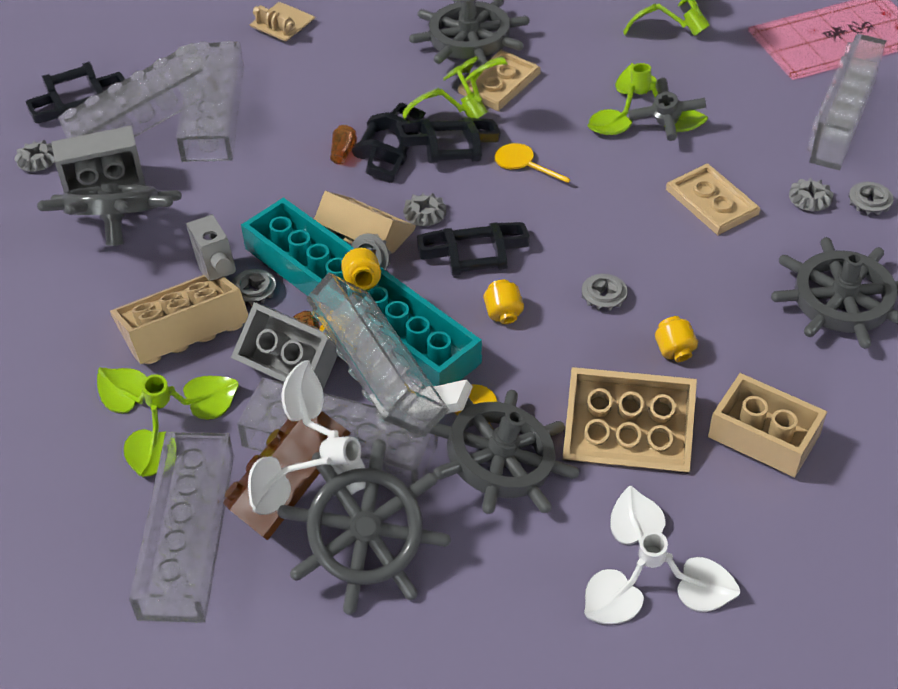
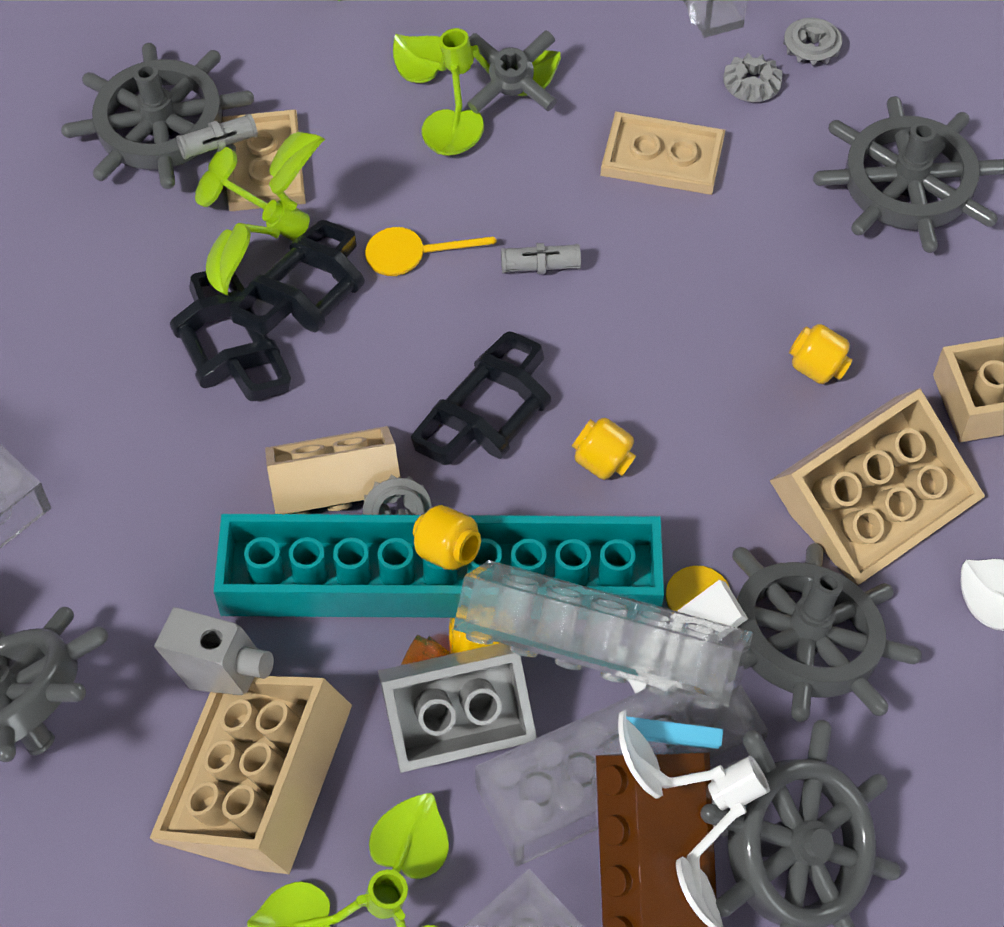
camera: 45 degrees left, 10 degrees up
(259, 279) = (286, 642): light grey gear -> none
(342, 143) = (179, 383): clear orange cone -> none
(348, 415) = (678, 733): none -> medium azure tile
(428, 216) = (365, 410): light grey gear -> none
(462, 45) = (217, 136): none -> light grey pin
(581, 202) = (540, 258): none -> light grey pin
(596, 285) = (689, 339): light grey gear -> none

